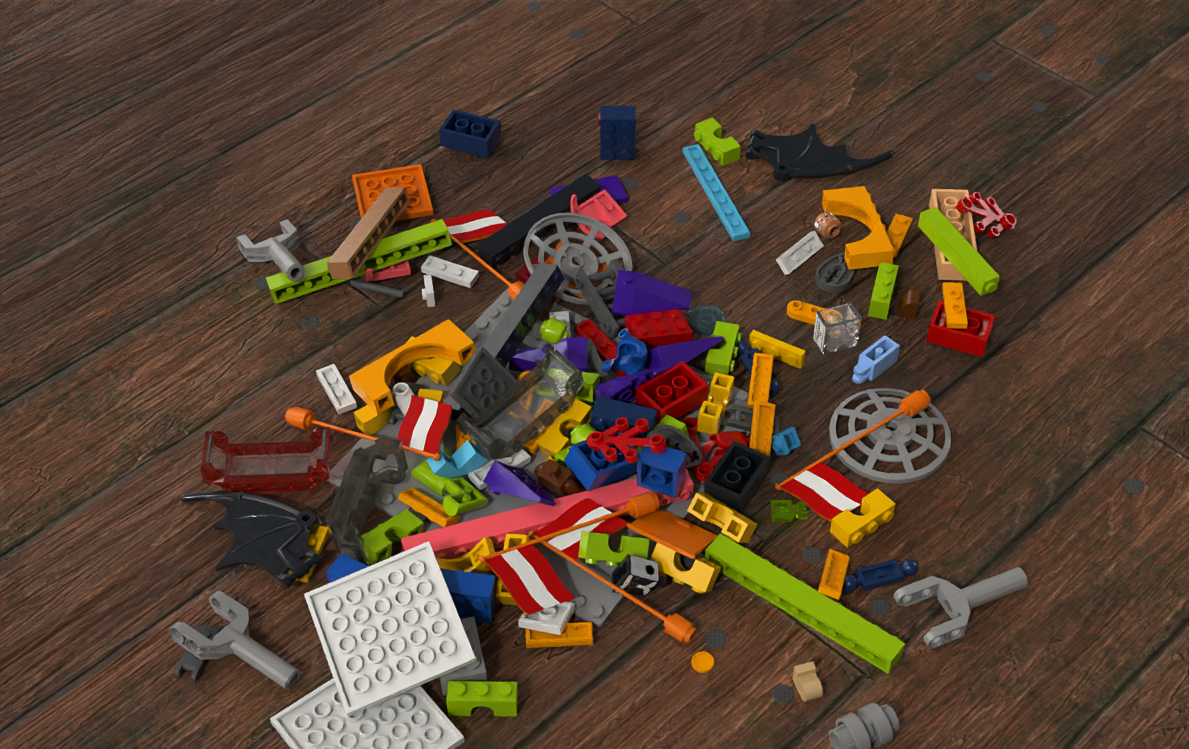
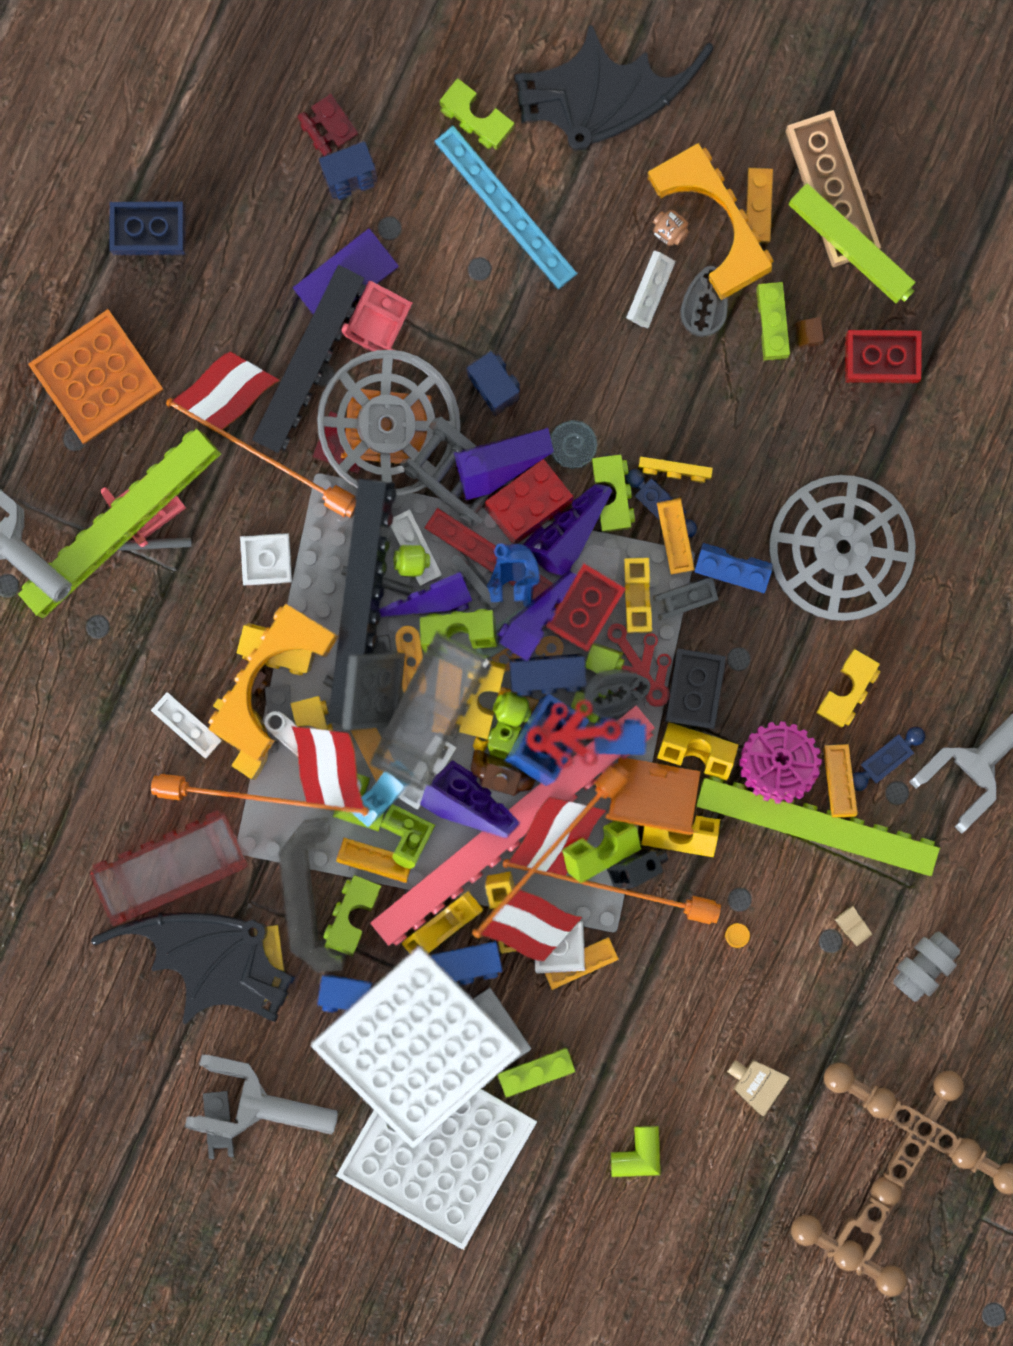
camera: 20 degrees left, 40 degrees up
(368, 233) = (116, 486): medium nougat brick -> none
(427, 292) = (222, 534): white plate -> none
(450, 271) = (232, 485): white plate -> none
(456, 313) = (266, 559): none -> white tile
(663, 254) = (493, 382): none -> dark blue brick
(726, 438) = (674, 634): red piece -> none
(762, 427) = (702, 614): light orange plate -> none
(784, 510) = (759, 709): clear neon green plate -> none
(785, 441) = (730, 610): dark azure bracket -> none
(787, 543) = (773, 778): none -> dark pink piece
(803, 311) = (689, 392): light orange plate -> none
(808, 418) = (745, 573): none -> blue arch
(828, 490) = (793, 658): flag -> none
(837, 328) = (739, 416): clear brick -> none
(876, 360) = (797, 448): light blue hinge -> none
(954, 305) = (870, 336): light orange plate -> none
(1006, 221) = (869, 141): red plant -> none

